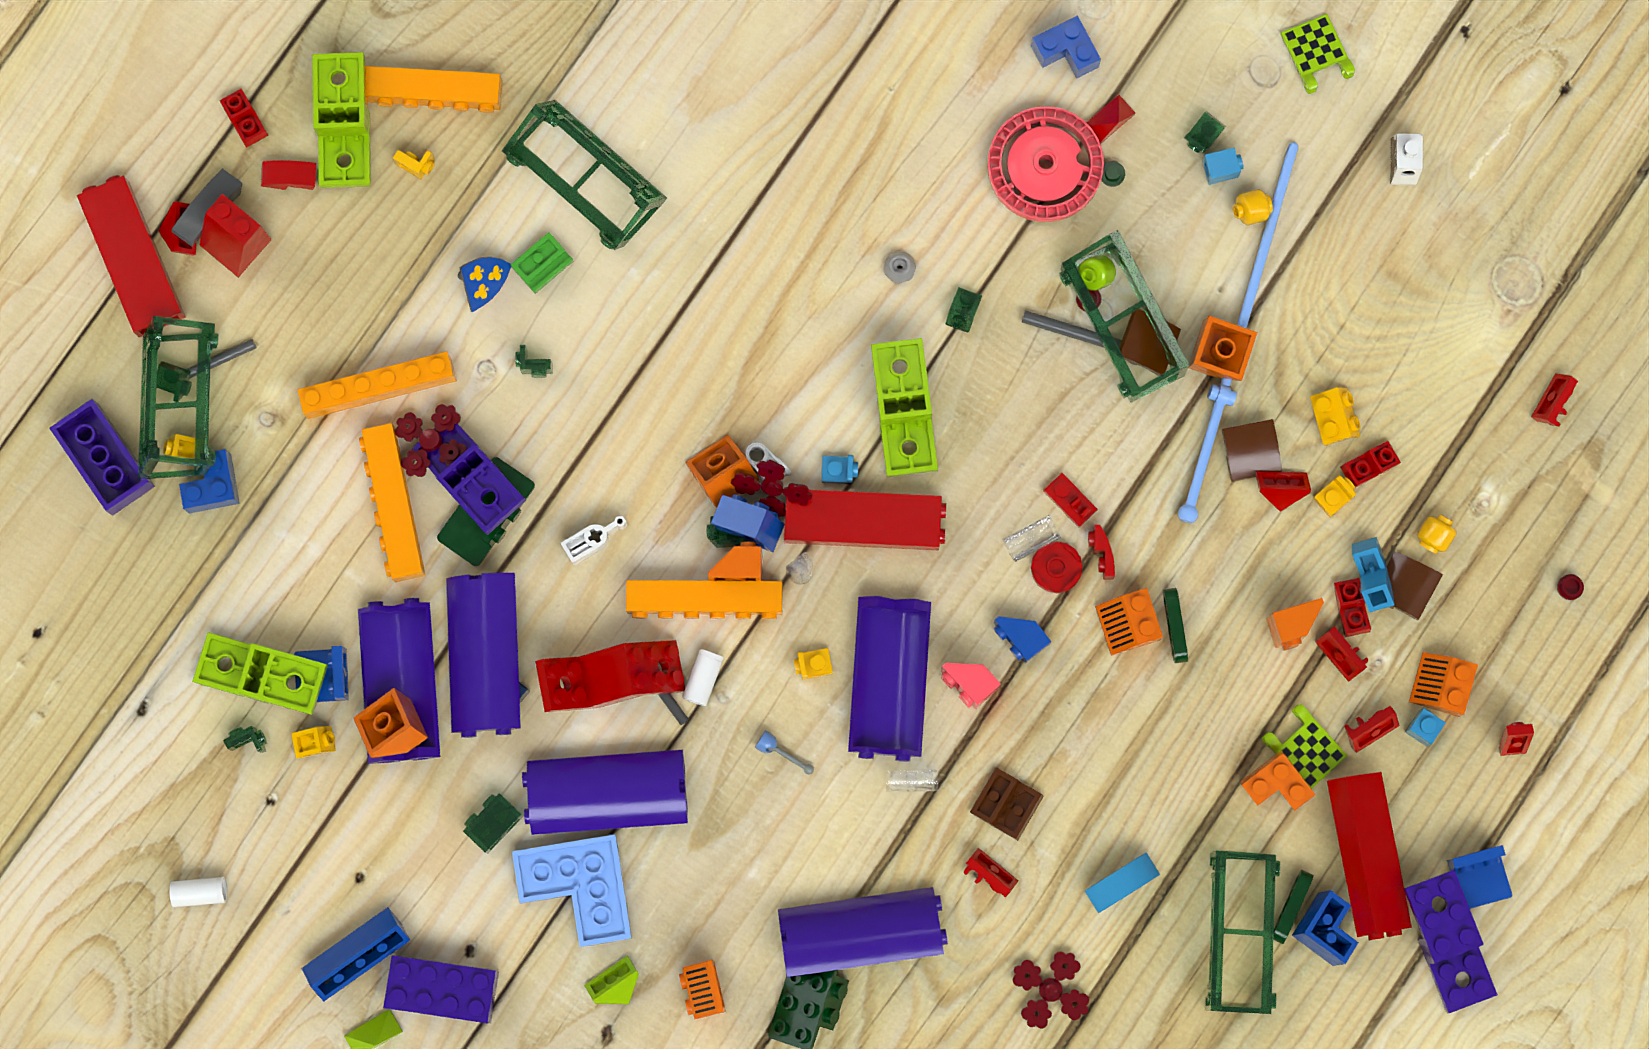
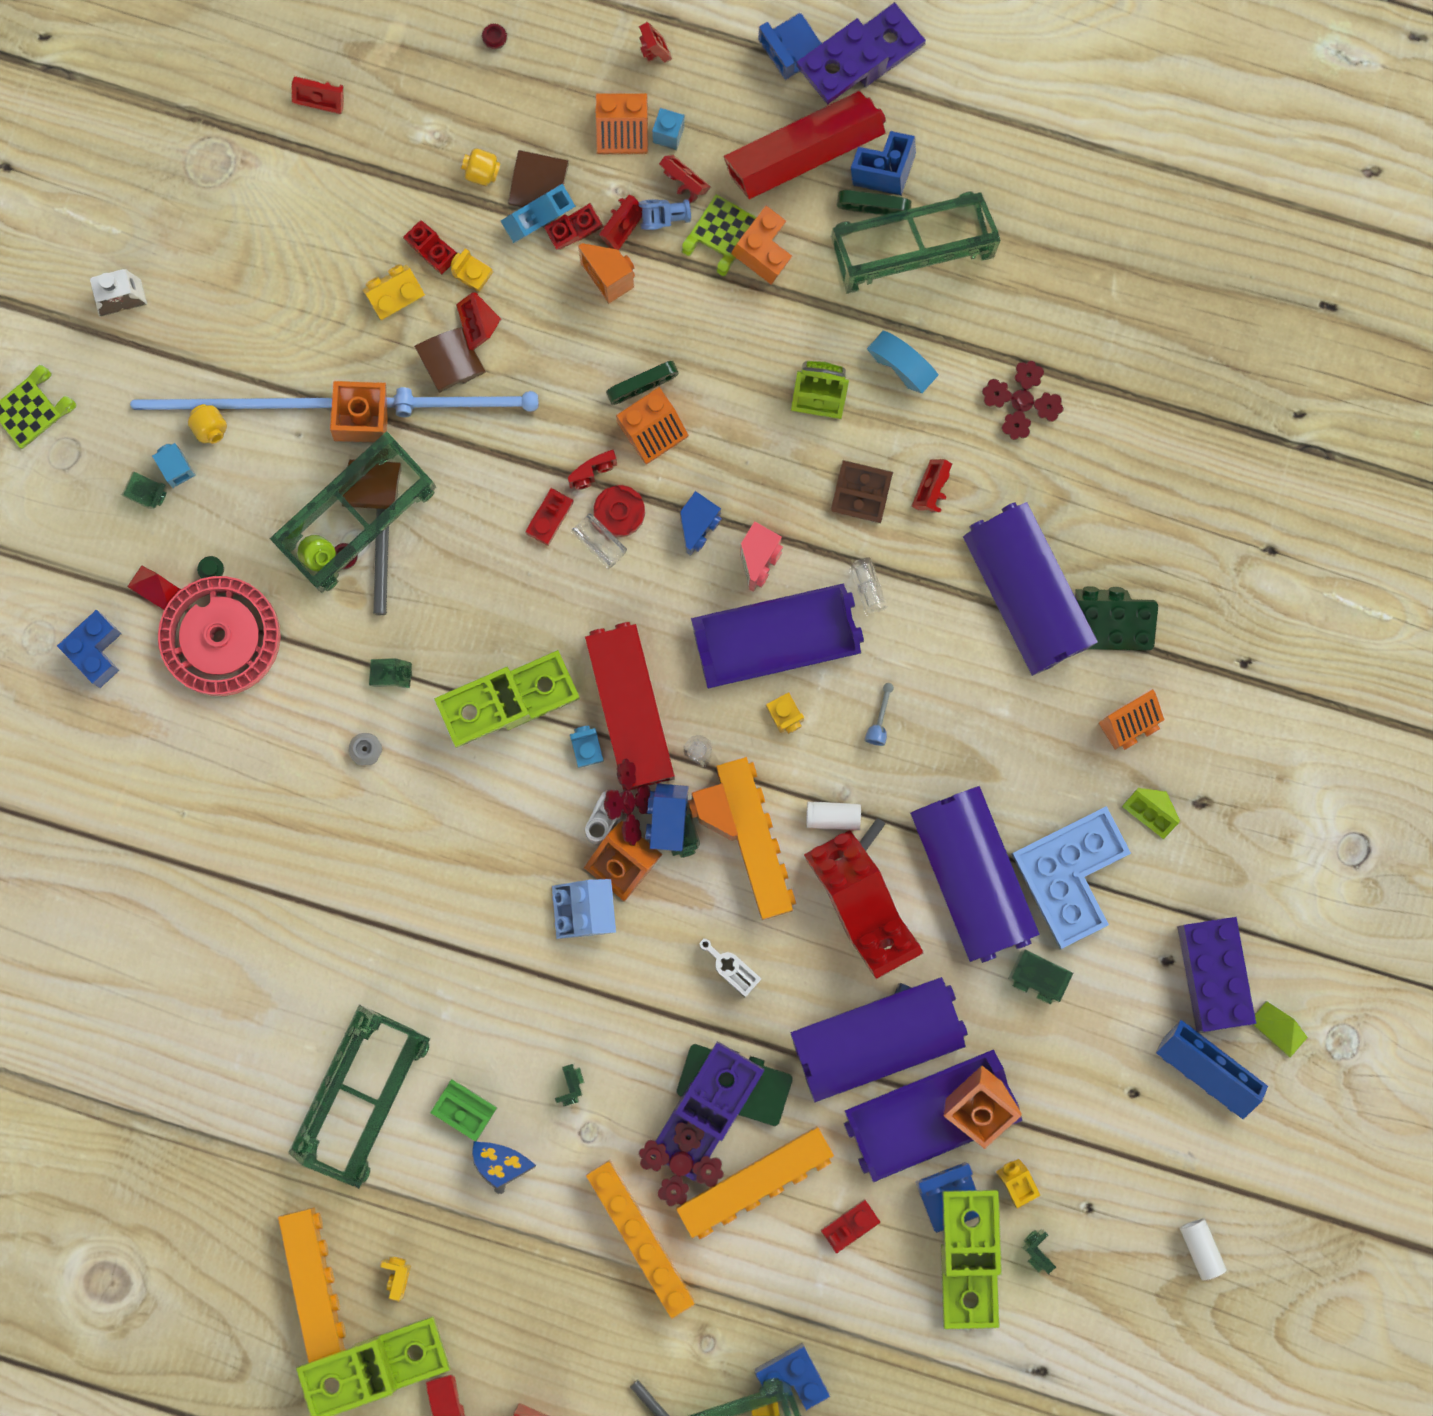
camera: 115 degrees left, 0 degrees up
(326, 578) = (850, 1226): none -> red plate
(688, 422) = (583, 908): none -> light blue slope
(1119, 794) = (820, 389): none -> lime piece
(1340, 695) = (661, 213): none -> medium blue connector

